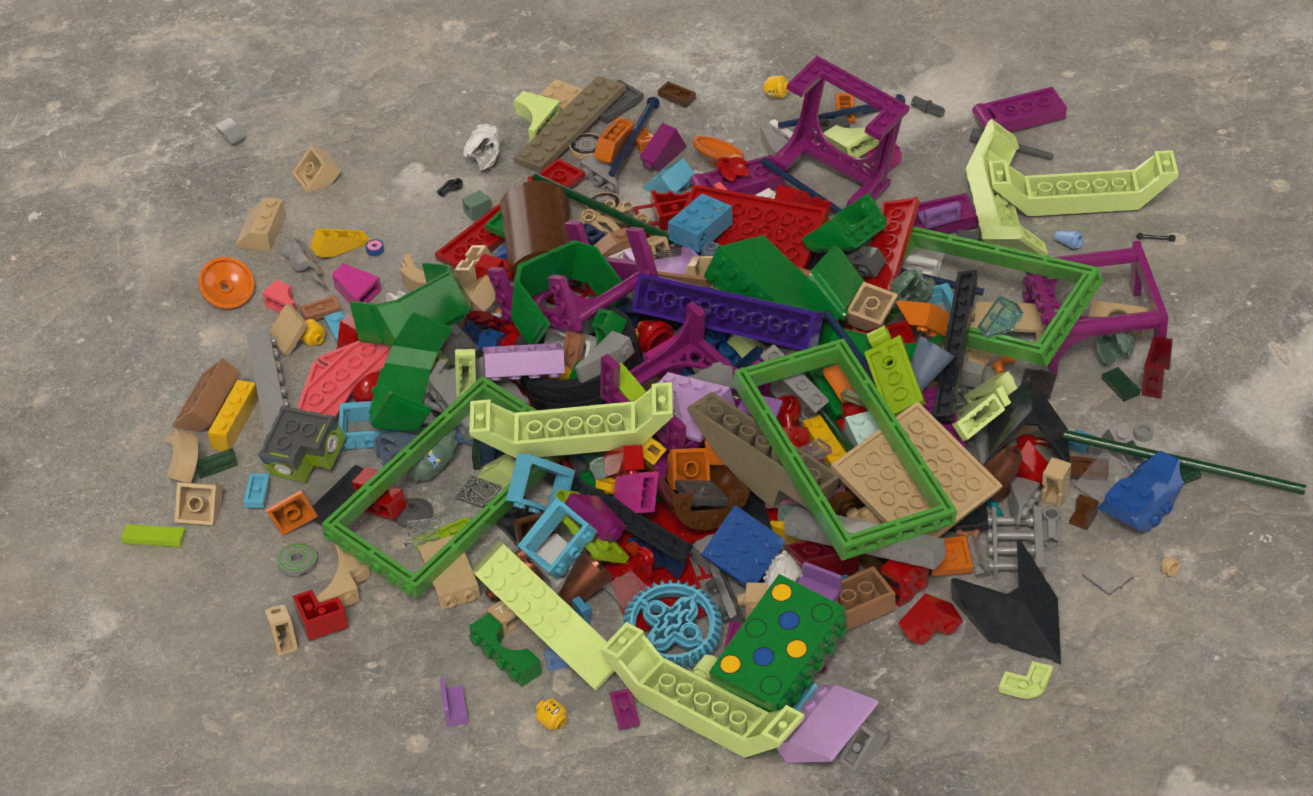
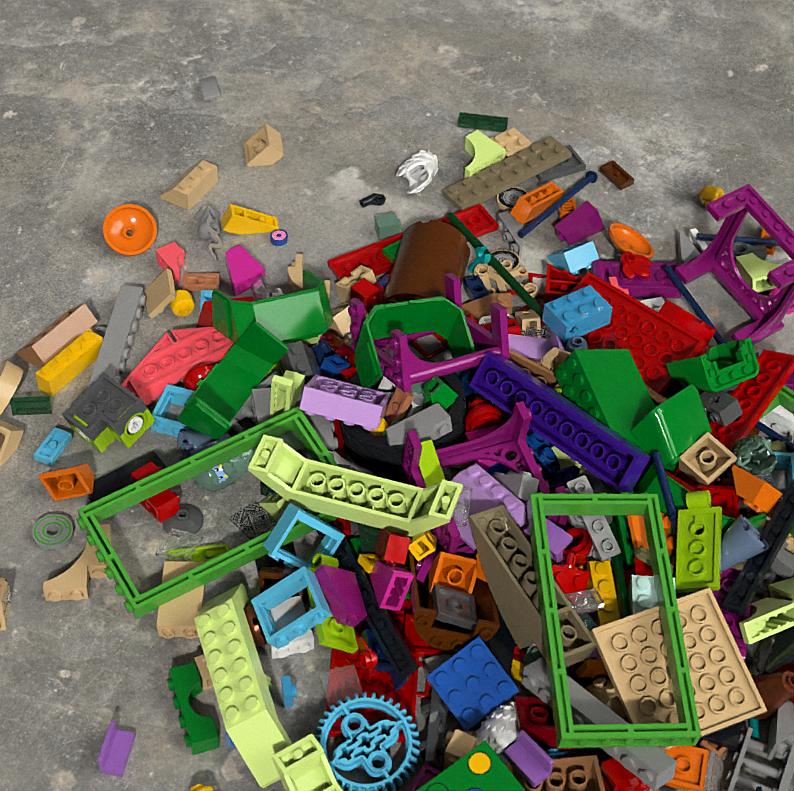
camera: 15 degrees right, 5 degrees up
(319, 618) = (35, 605): red brick -> none
(384, 294) = (261, 289): none -> clear slope
(522, 83) = (482, 122): none -> clear green tile
(582, 205) = (480, 258): none -> teal bar
(584, 579) = (303, 659): copper cone -> none

